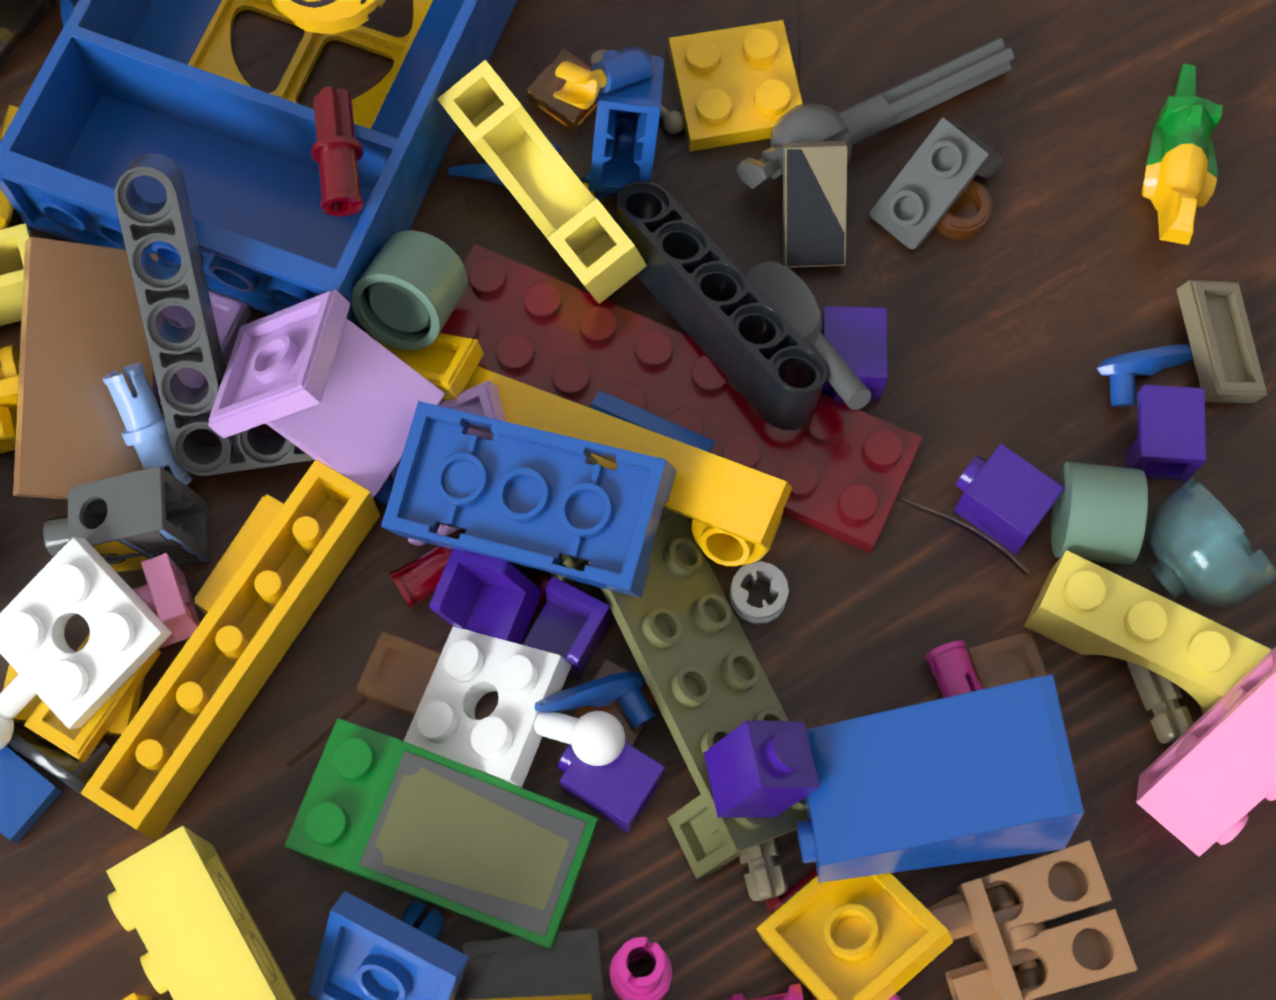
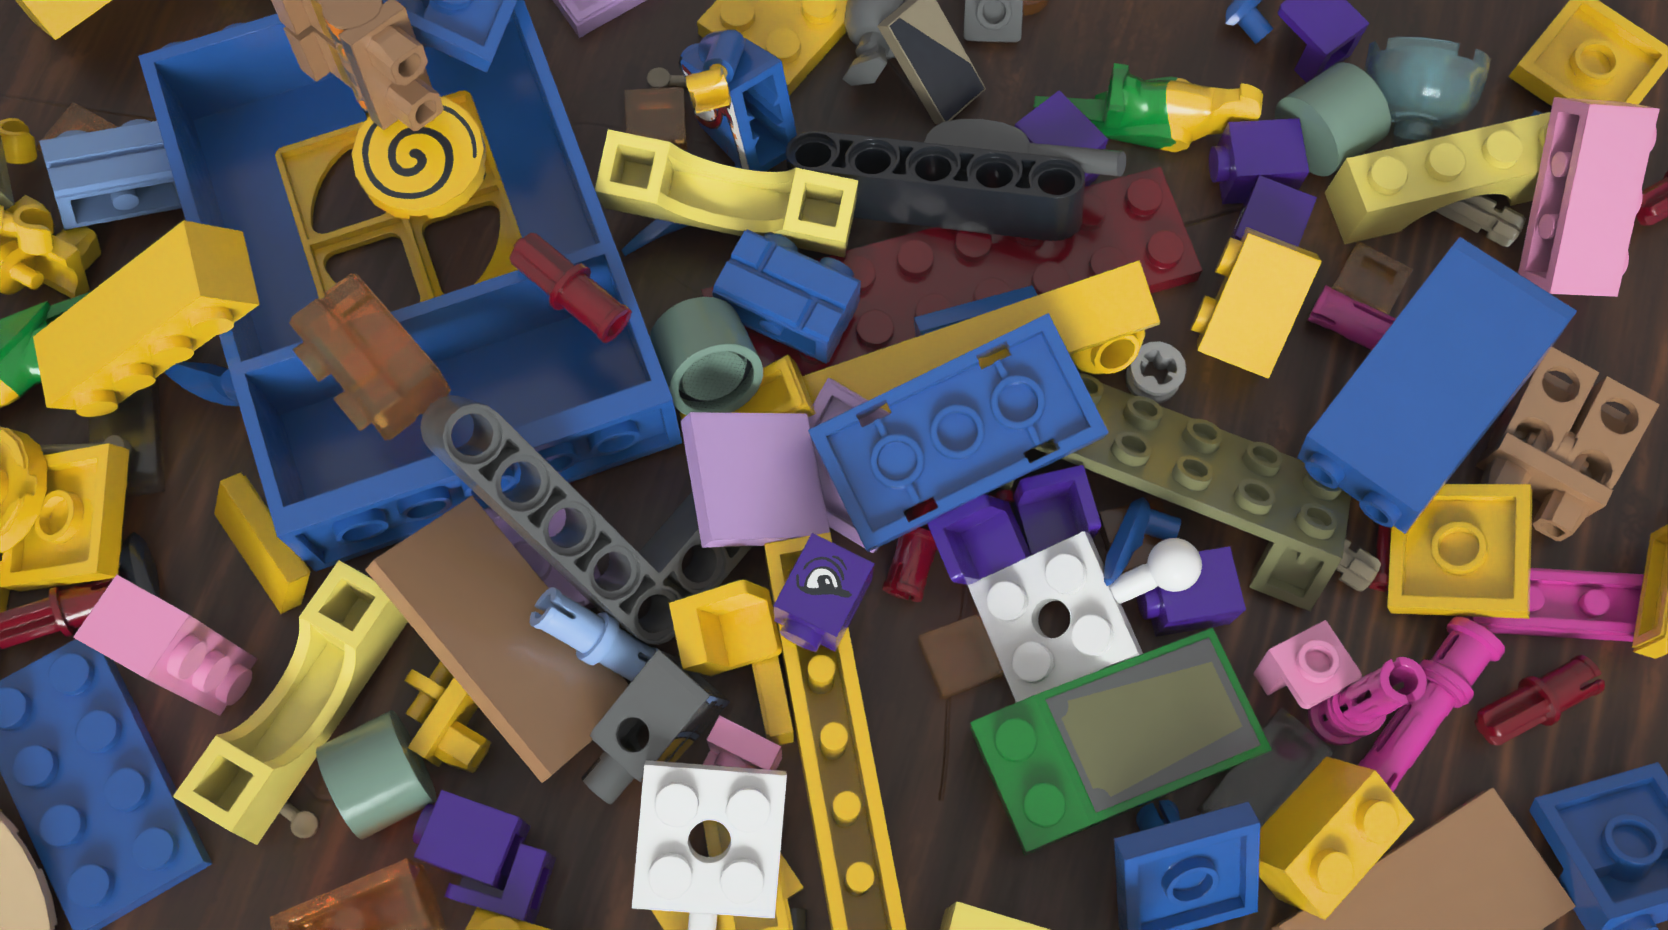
camera: 45 degrees left, 0 degrees up
(149, 88) = (369, 356): none -> clear orange brick
(229, 495) = (725, 628): none -> yellow panel
(279, 364) = (676, 491): lavender tile -> none
(306, 527) = (822, 594): none -> dark purple brick
(518, 295) = (789, 294): none -> blue brick
(634, 908) = (1310, 665): none -> bright pink bracket
(761, 769) = (1312, 482): dark purple brick -> none
(878, 599) = (1255, 302): none -> yellow brick
(956, 558) = (1275, 211): none -> dark purple brick
(964, 391) = (1165, 110): none -> animal

